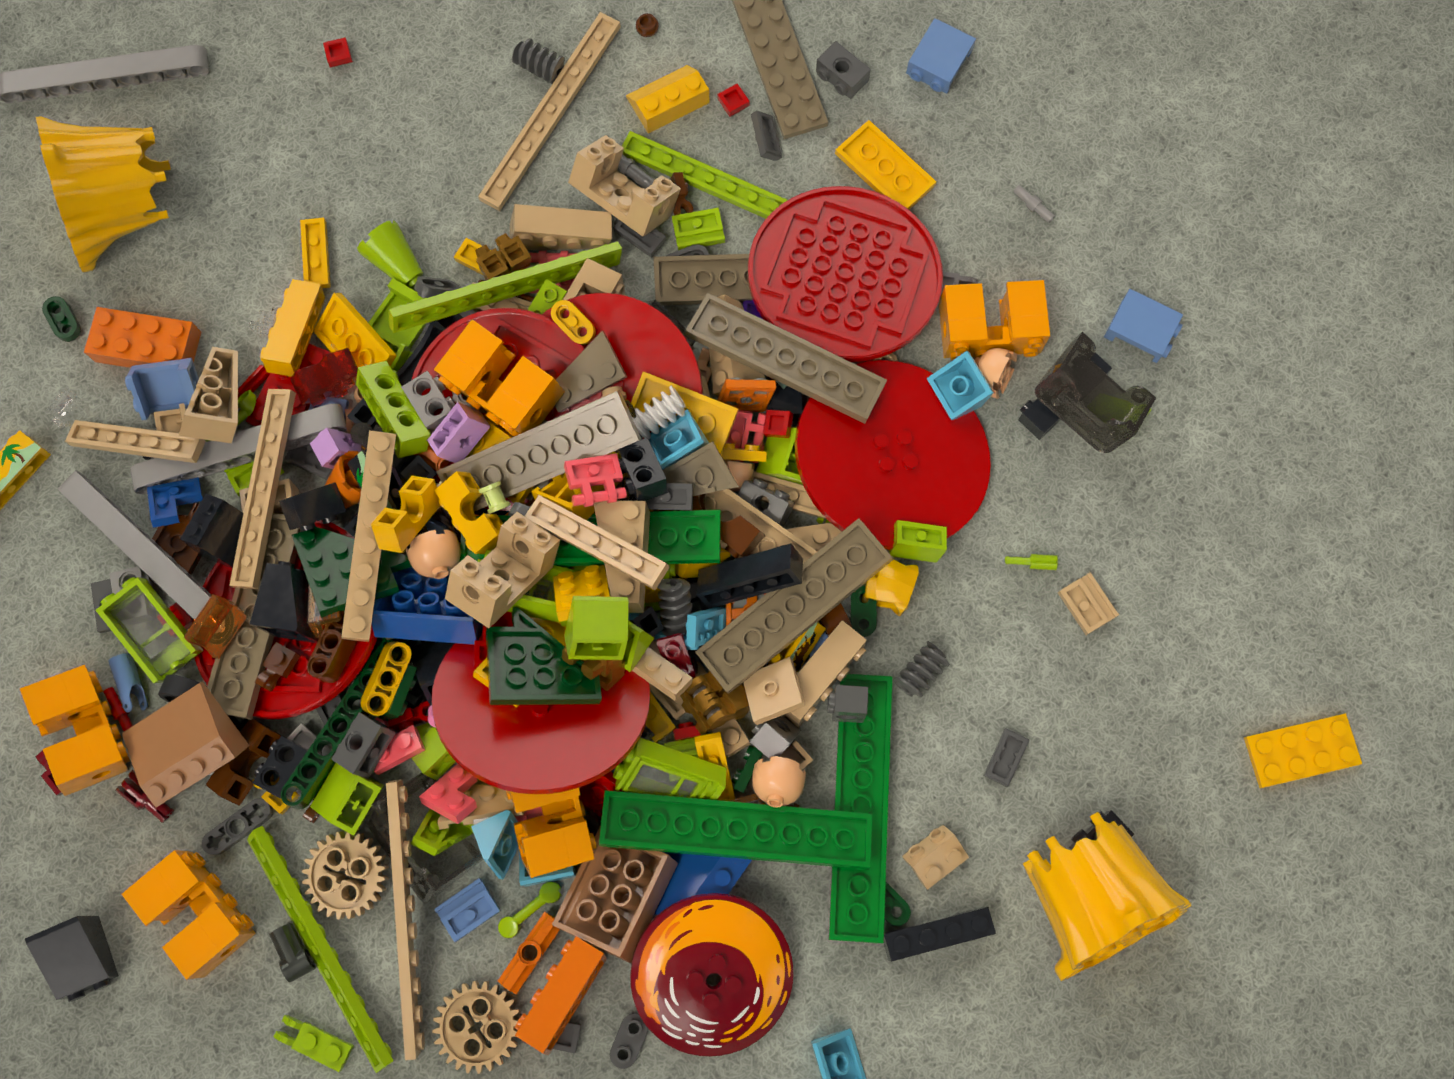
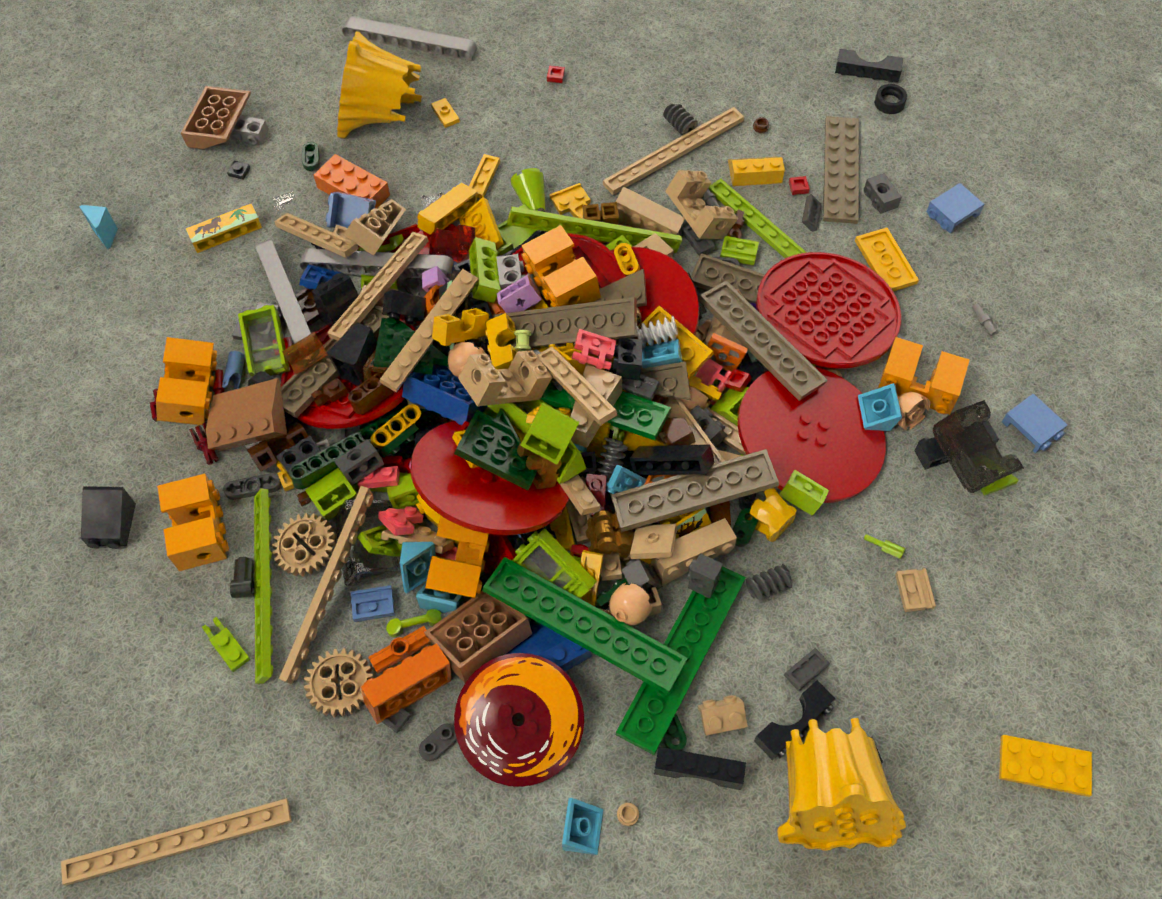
camera: 25 degrees right, 15 degrees down
(213, 173) = (445, 112): none -> yellow plate
(445, 239) = (568, 197): none -> yellow plate
(881, 1022) = (628, 814): none -> tan plate
(1032, 795) = (815, 702): none -> black arch

